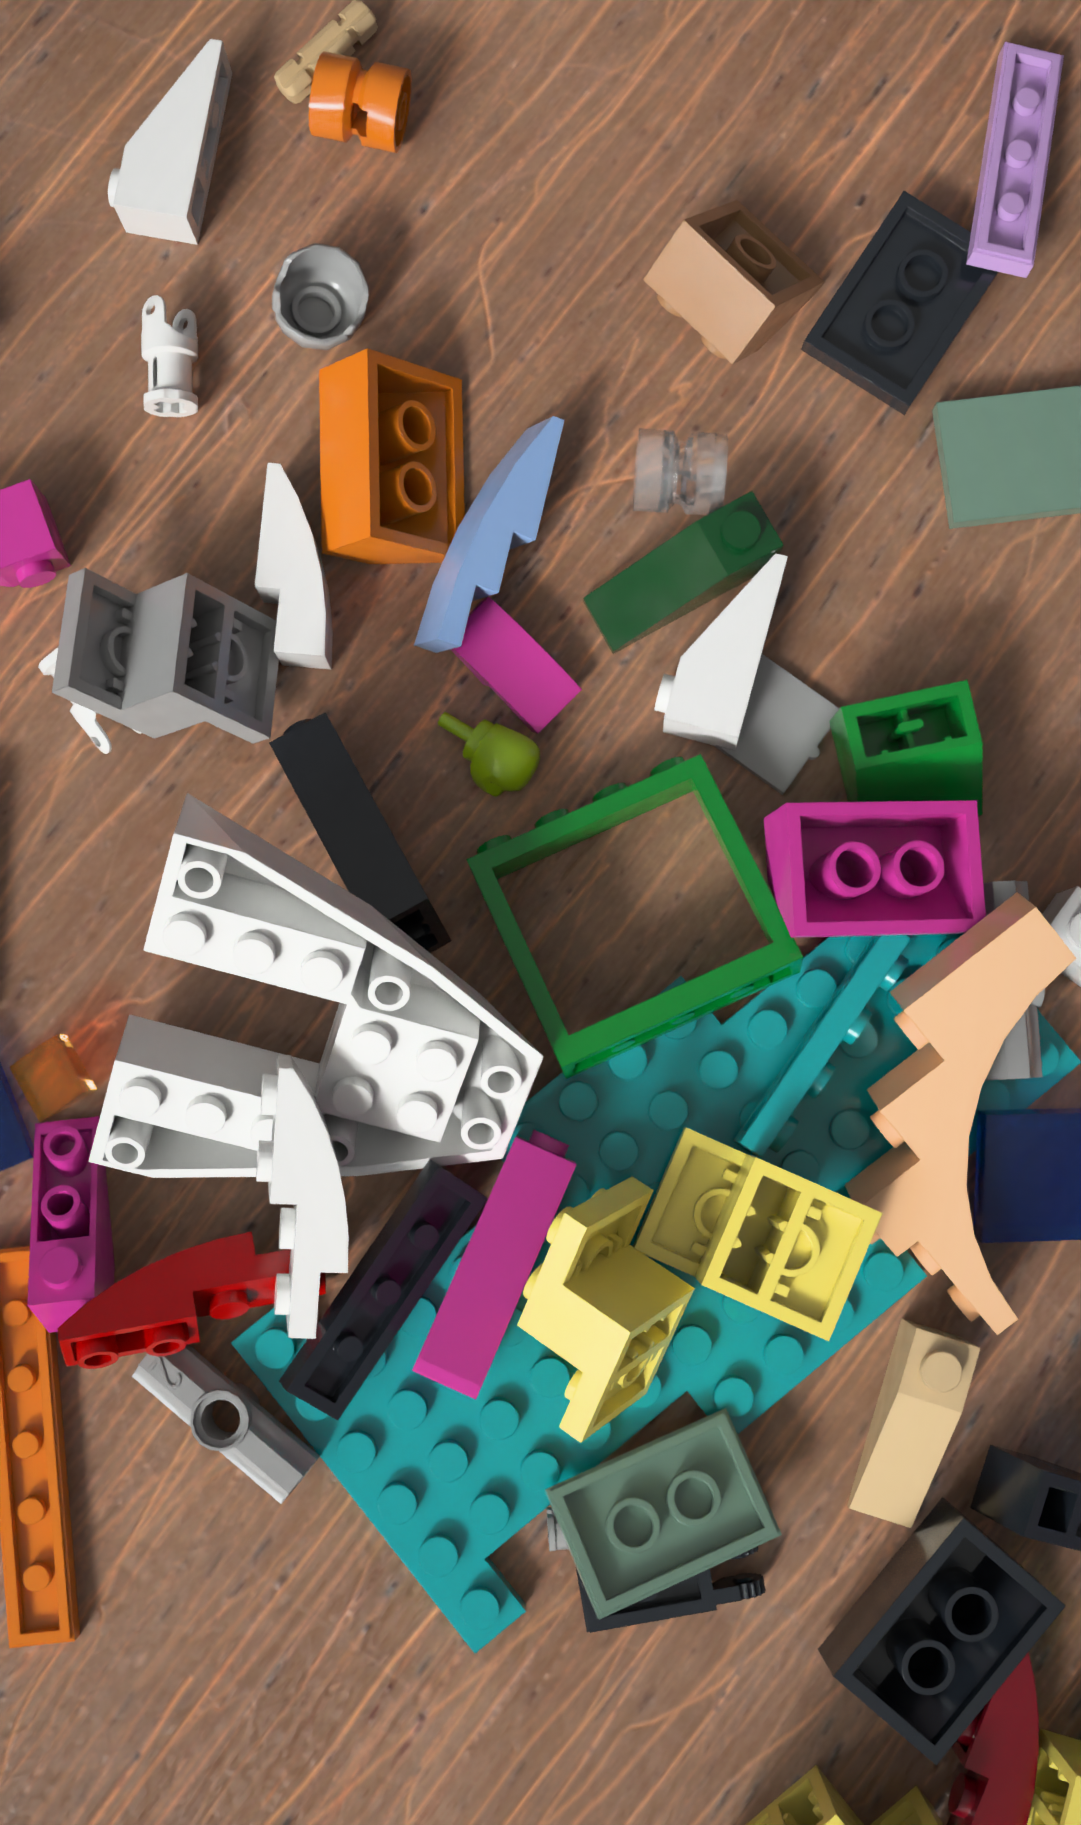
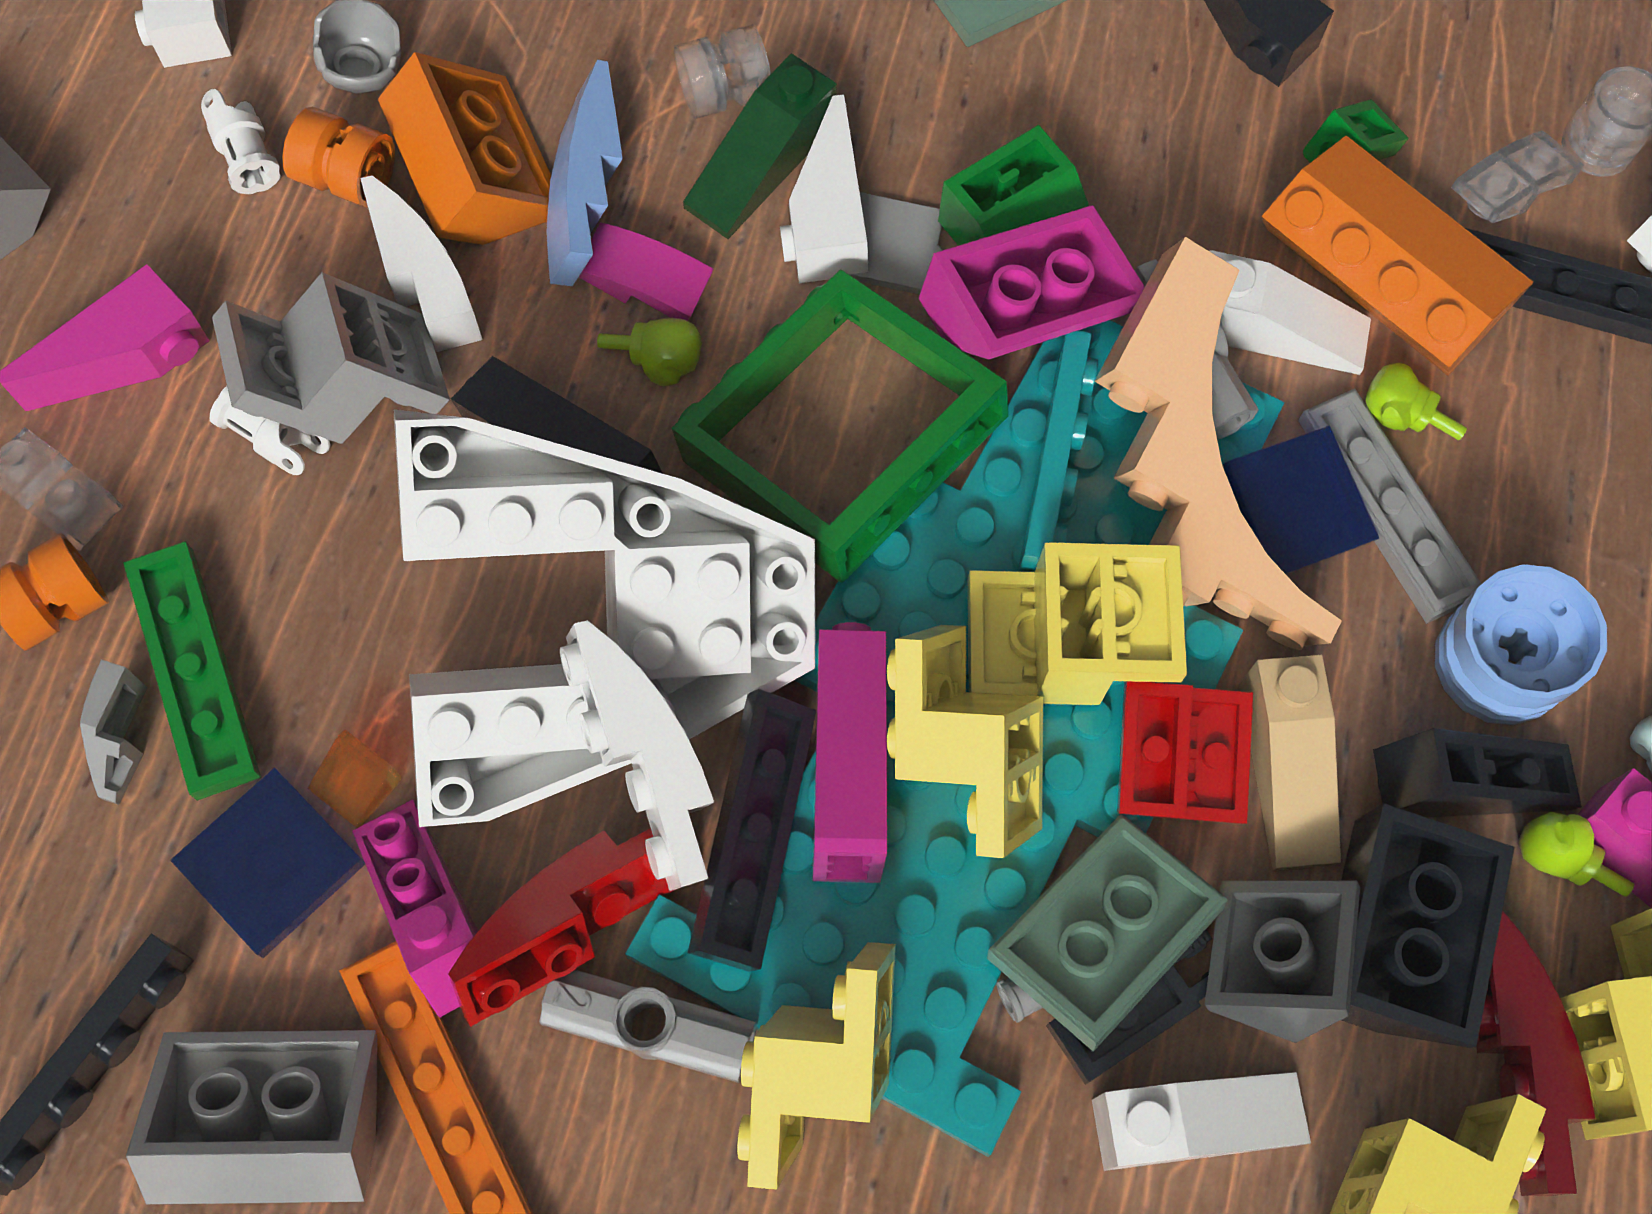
camera: 25 degrees left, 15 degrees down
(248, 412) = (333, 155): none -> orange wheel
(348, 1537) = (818, 1065): none -> light yellow bracket
(668, 1704) = (1199, 1120): none -> white slope
(810, 1602) = (1284, 955): none -> dark grey slope
(813, 1384) = (1185, 752): none -> red slope

